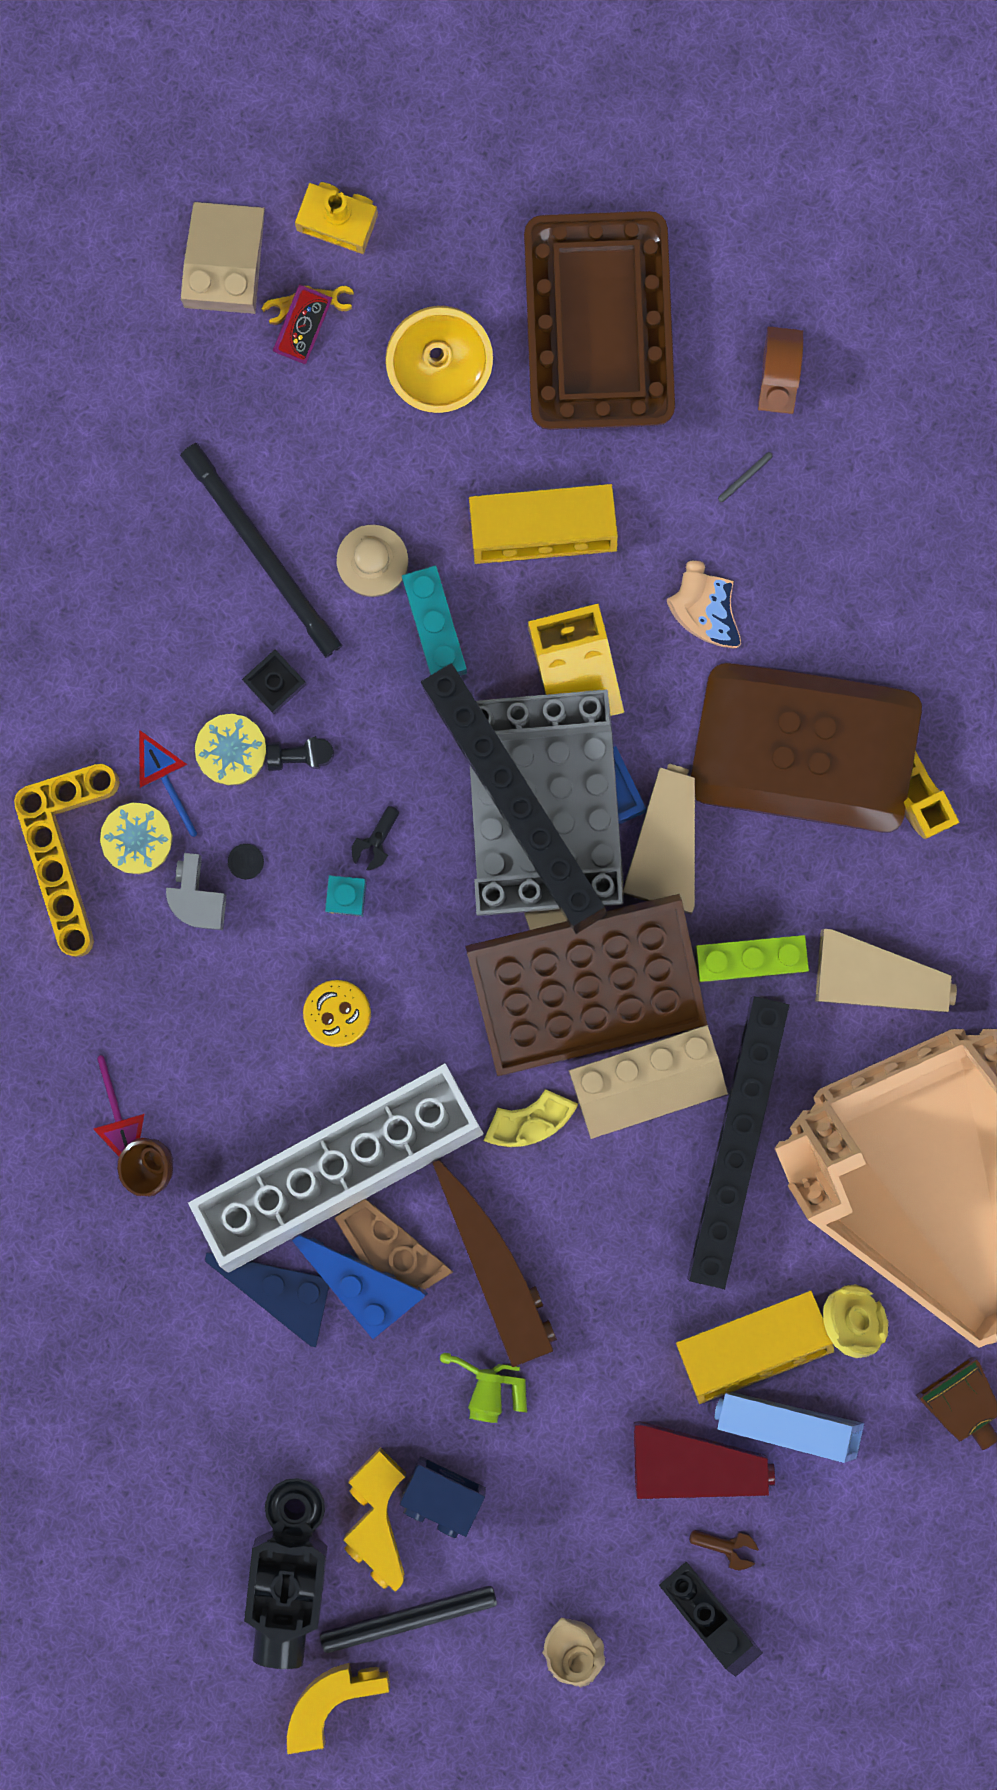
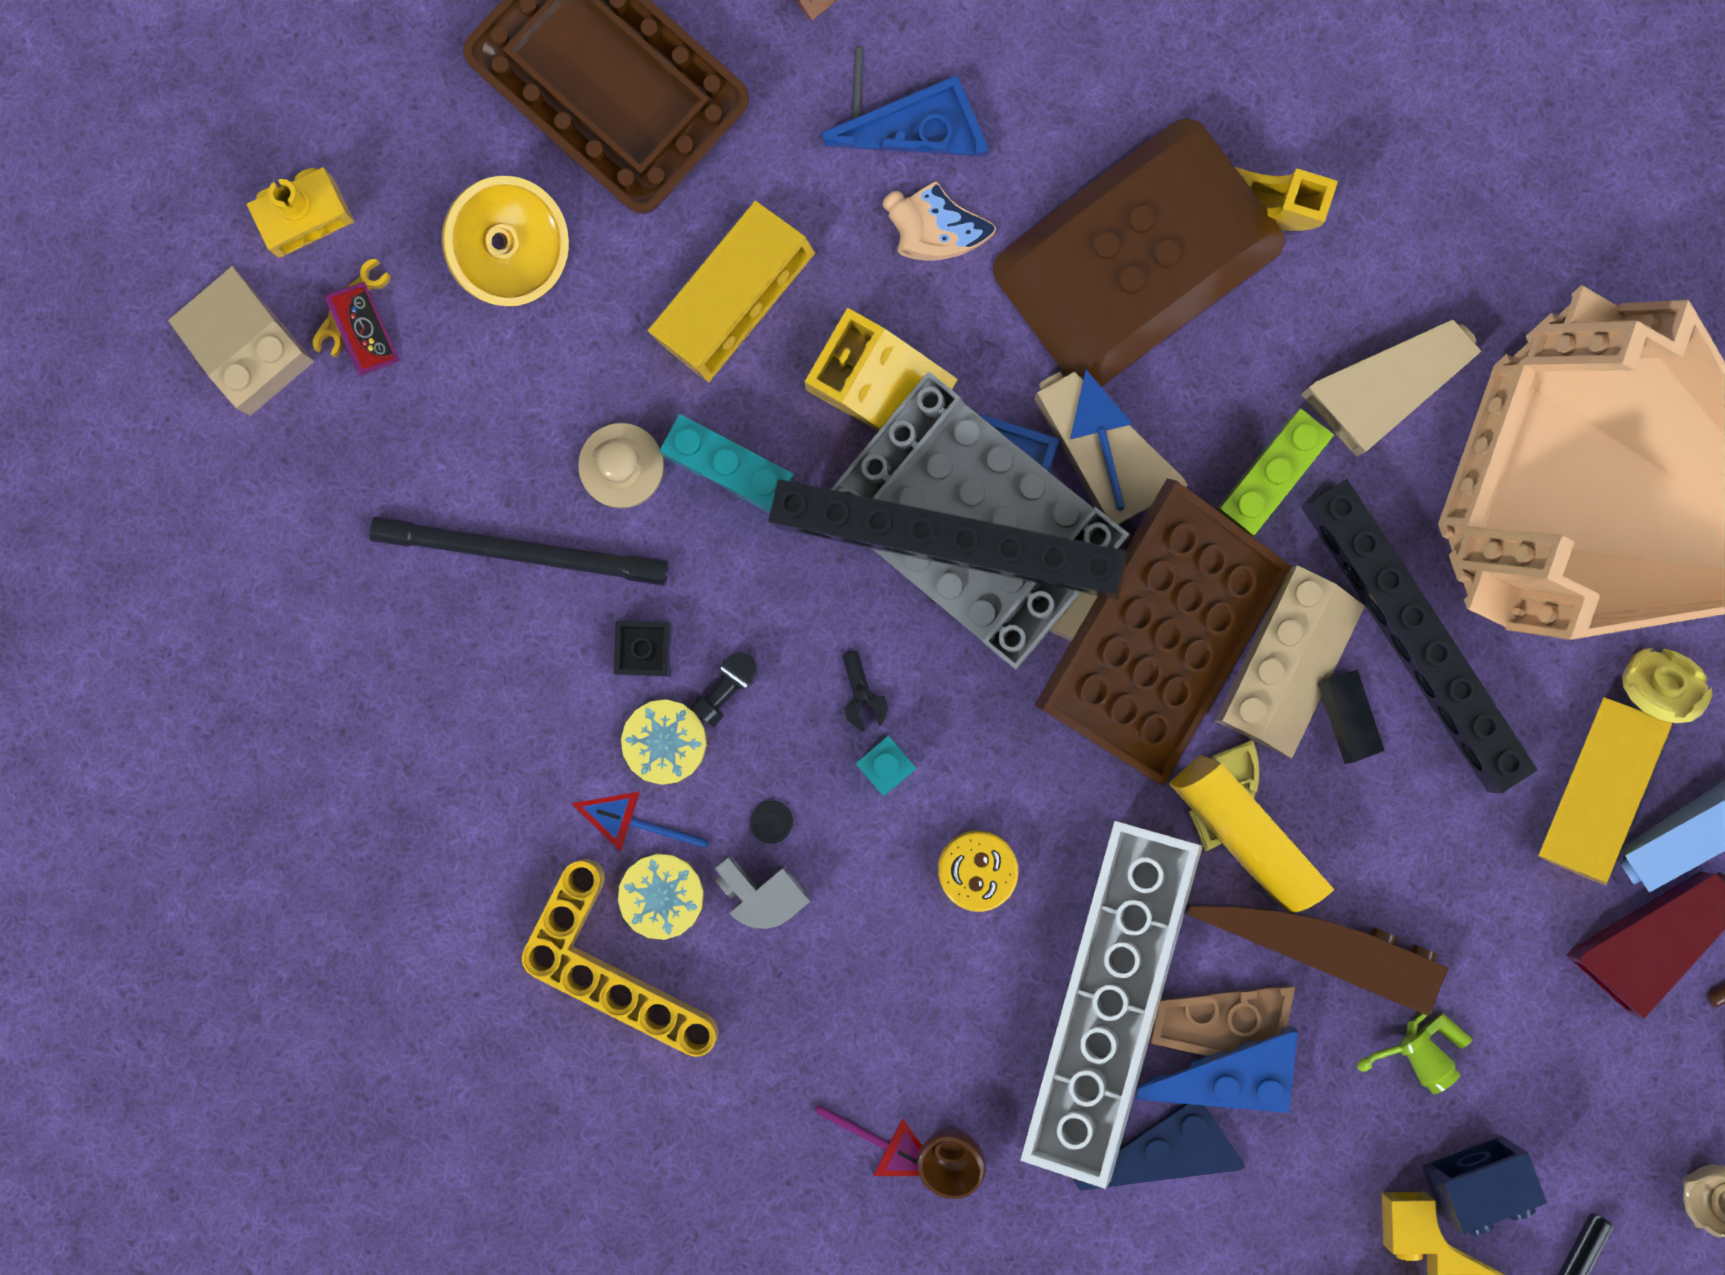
camera: 45 degrees left, 0 degrees up
(516, 1154) = (1250, 835): none -> yellow brick
(650, 1149) = (1351, 717): none -> black tile
(682, 817) = (1098, 414): none -> blue piece
(762, 539) = (923, 122): none -> blue wing

